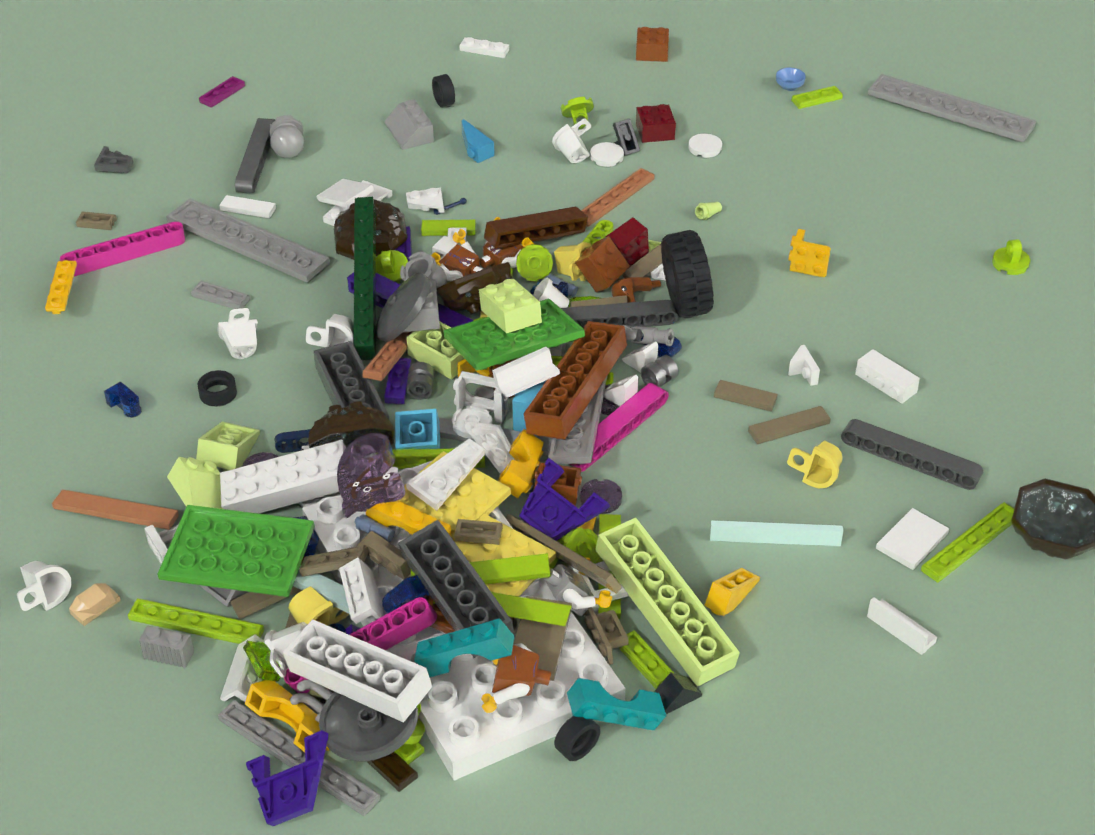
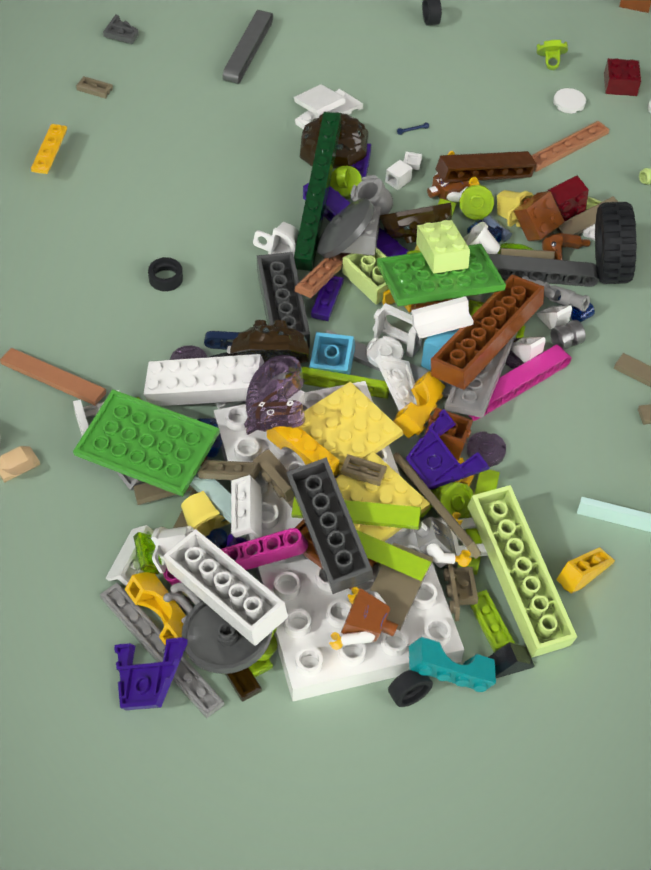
camera: 10 degrees right, 10 degrees up
(124, 398) = (82, 268): clear blue leg -> none
(126, 247) = (114, 119): dark pink beam -> none
(166, 646) = (69, 519): light grey brick -> none
(193, 621) = (99, 499): lime tile -> none
(196, 482) = (127, 368): yellowish green slope -> none
(220, 295) = (188, 181): light grey tile -> none
(227, 445) = (161, 333): yellowish green slope -> none
(239, 334) = (195, 225): white container -> none
(247, 206) = (230, 97): white tile -> none
(249, 240) = (224, 131): light grey plate -> none
(286, 136) = (279, 33): light grey tile -> none
(367, 524) = (268, 442): sand blue piece -> none
(403, 593) = (286, 518): clear blue leg -> none
(410, 125) = (393, 40): light grey slope -> none
(420, 380) = (347, 302): flat silver wheel -> none
(425, 199) = (392, 118): white wing -> none
(440, 227) = (399, 148): lime tile -> none
(446, 474) = (343, 409): white wing -> none
(460, 260) = (409, 189): torso -> none
(477, 144) = (451, 69): dark azure slope -> none
(485, 392) = (402, 325): light grey piece -> none
(487, 640) = (344, 585): teal arch -> none
(569, 142) = (538, 85): white container -> none
(605, 225) = (553, 176): lime beam -> none
(626, 137) = (591, 86): slope -> none

